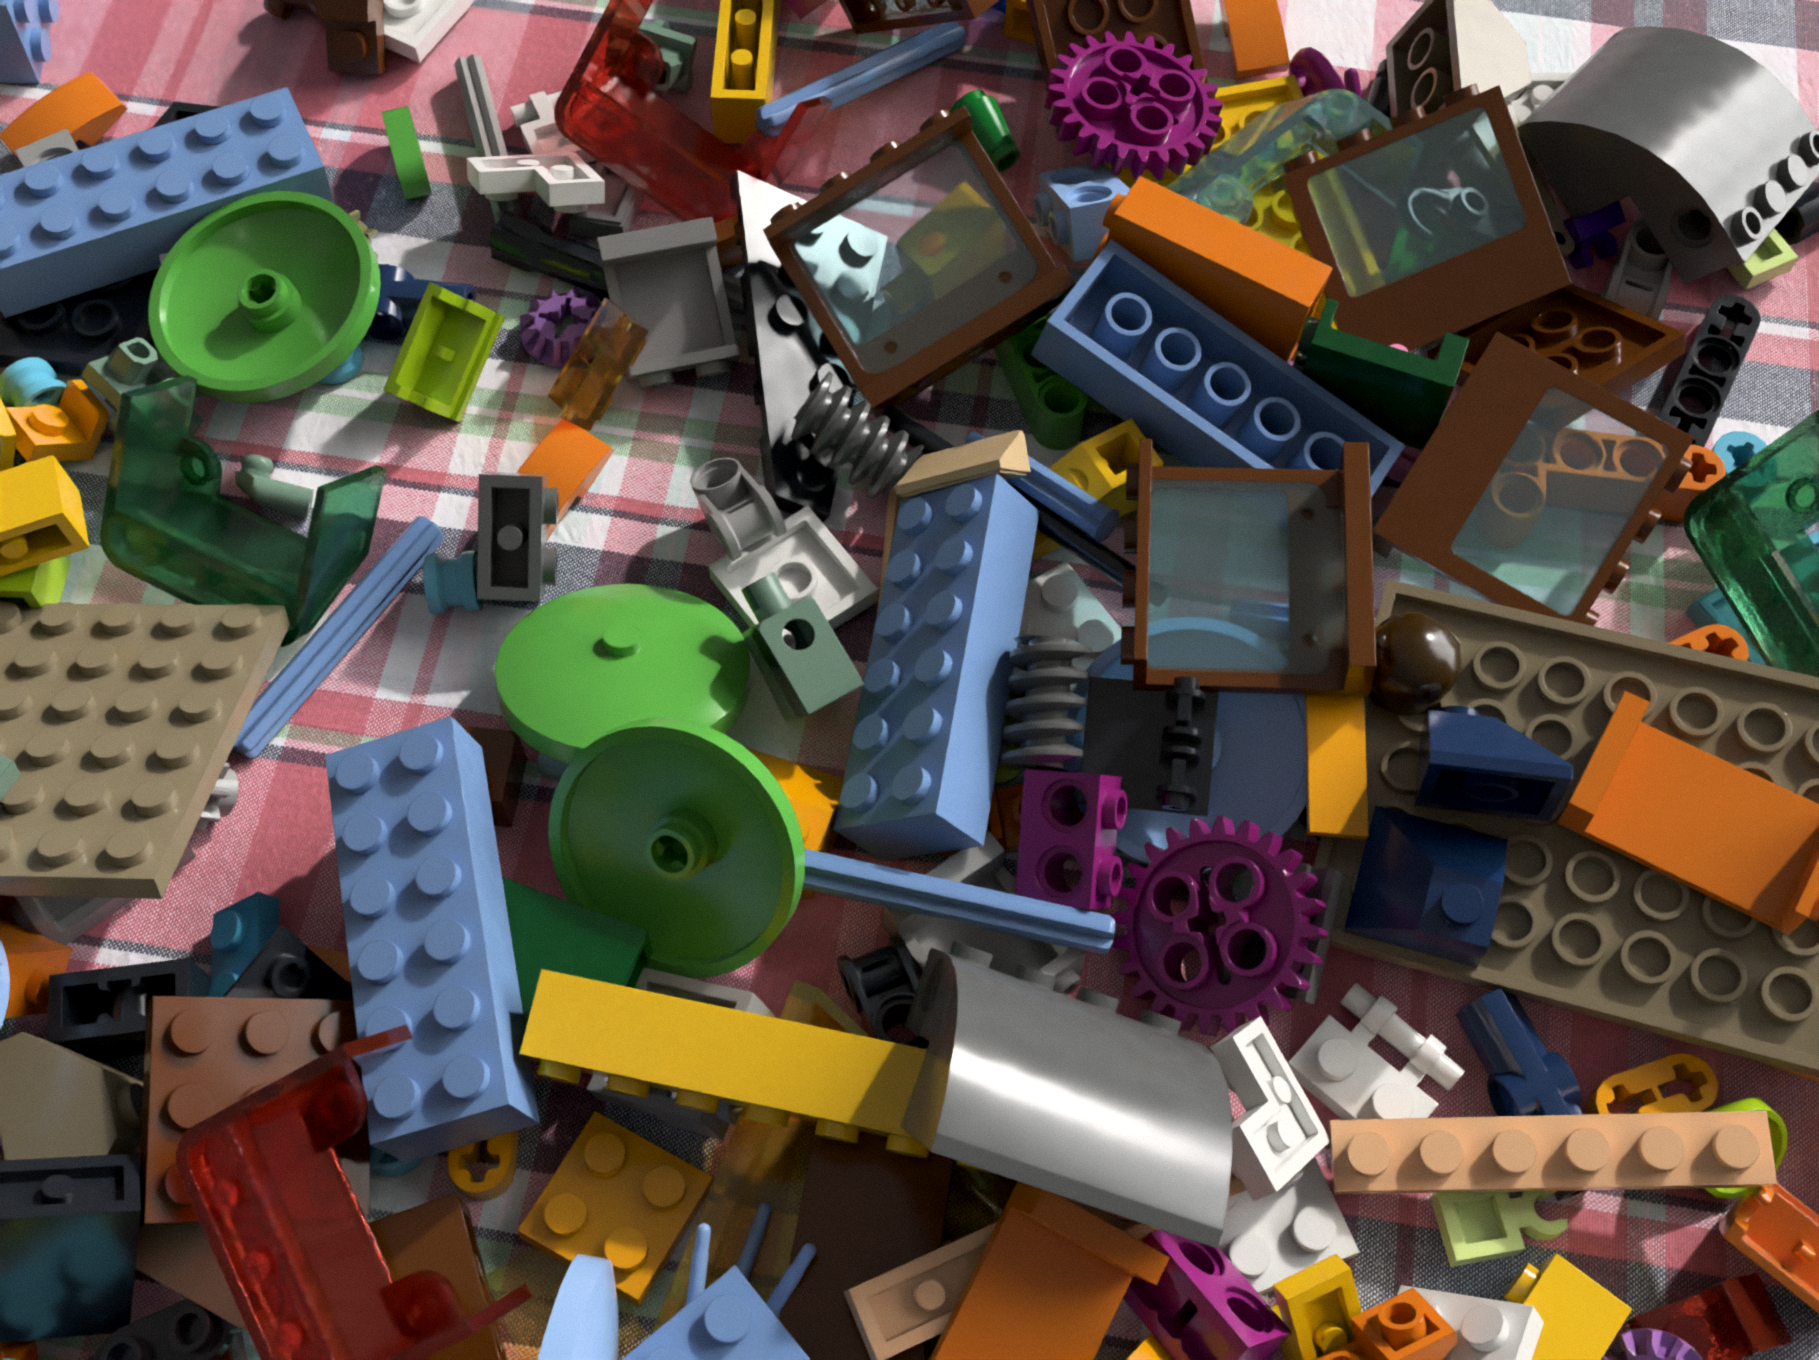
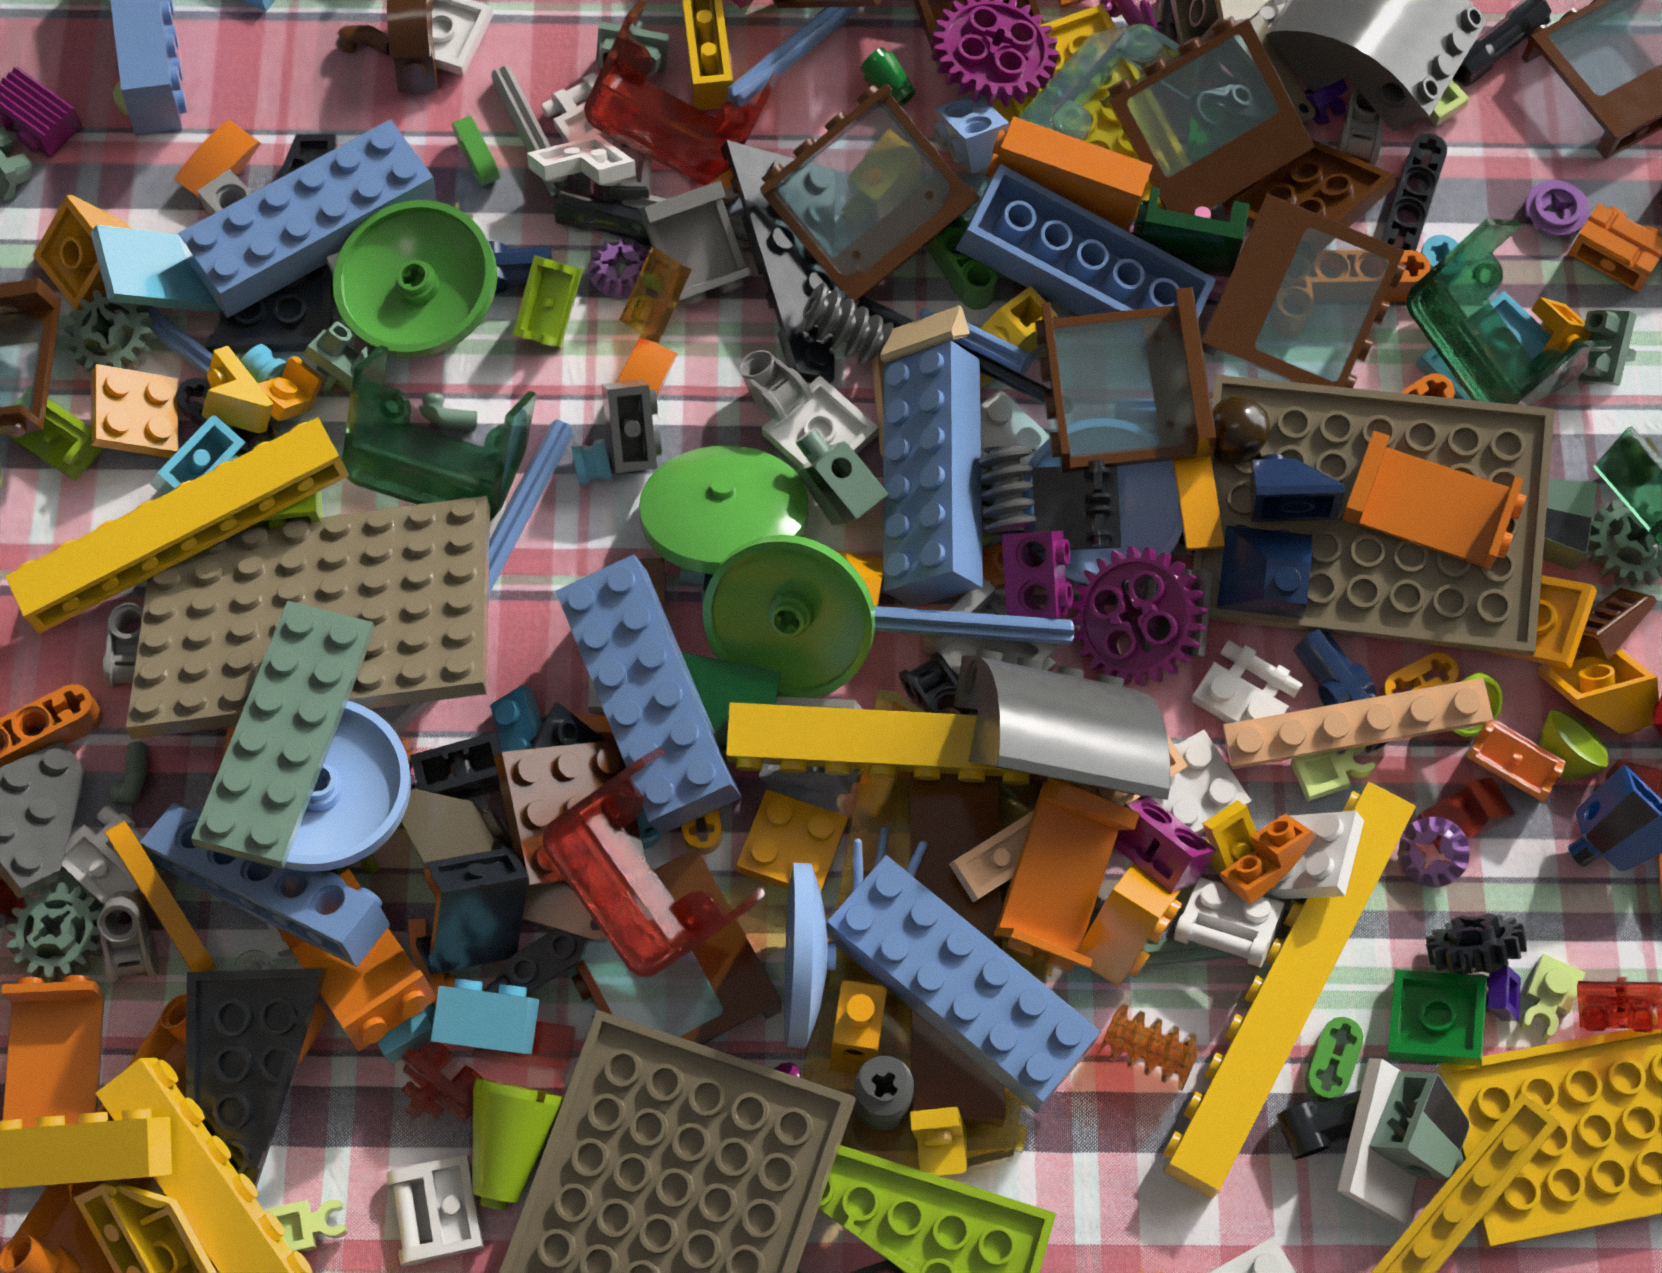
camera: 10 degrees left, 5 degrees up
(1279, 1123) = (1192, 728): white plate -> none

